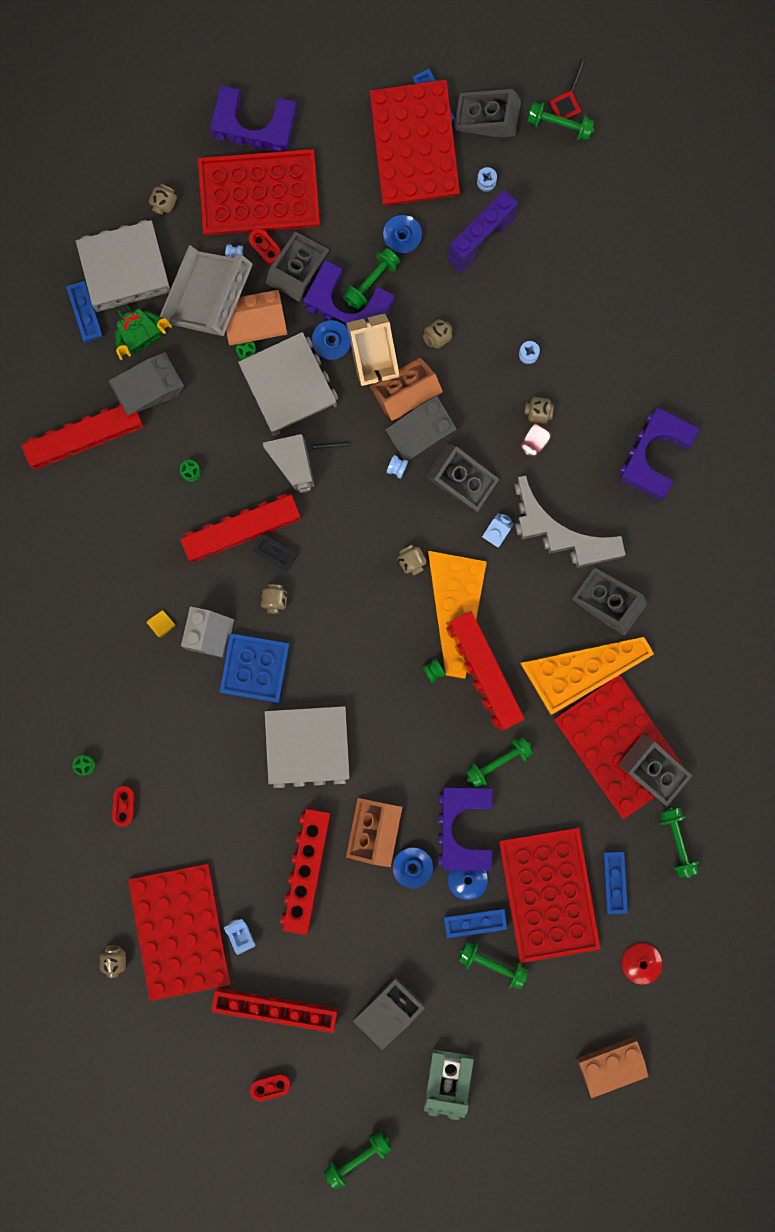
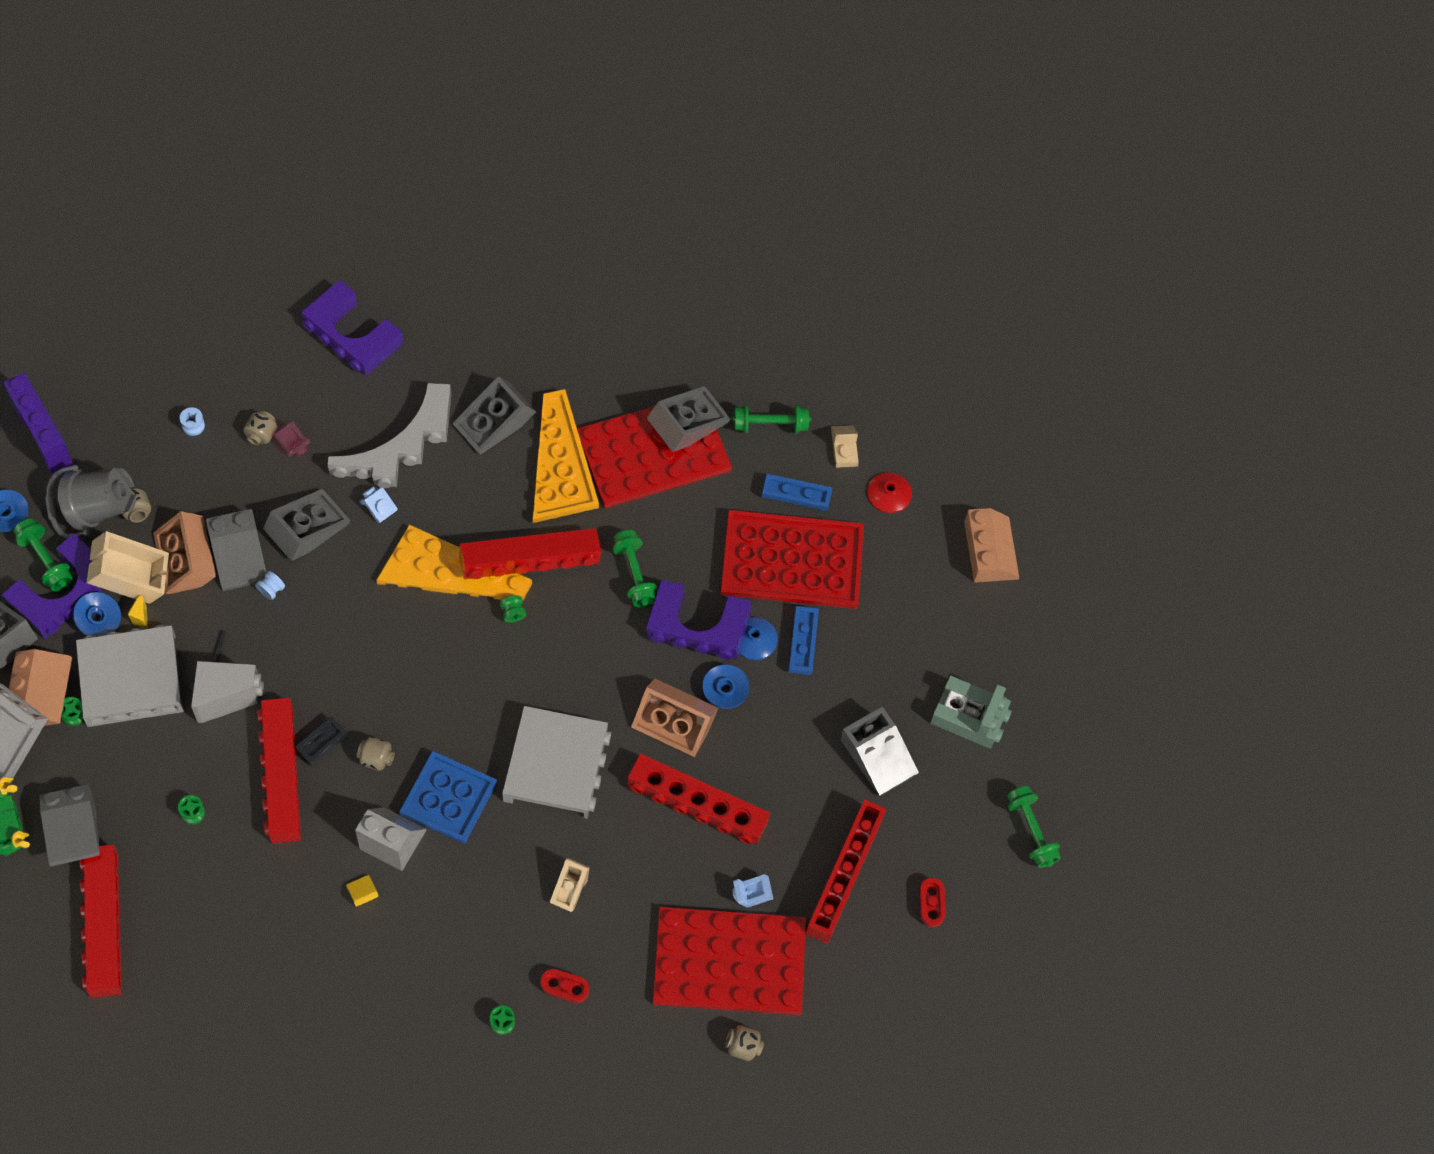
camera: 80 degrees left, 20 degrees down
(203, 787) = (570, 884): none -> tan slope
(343, 372) = (138, 613): none -> yellow slope
(411, 560) = (381, 597): dark tan head -> none
(426, 296) = (89, 497): none -> dark grey piece
(517, 976) = (836, 652): green piece -> none
(676, 913) = (845, 446): none -> tan slope

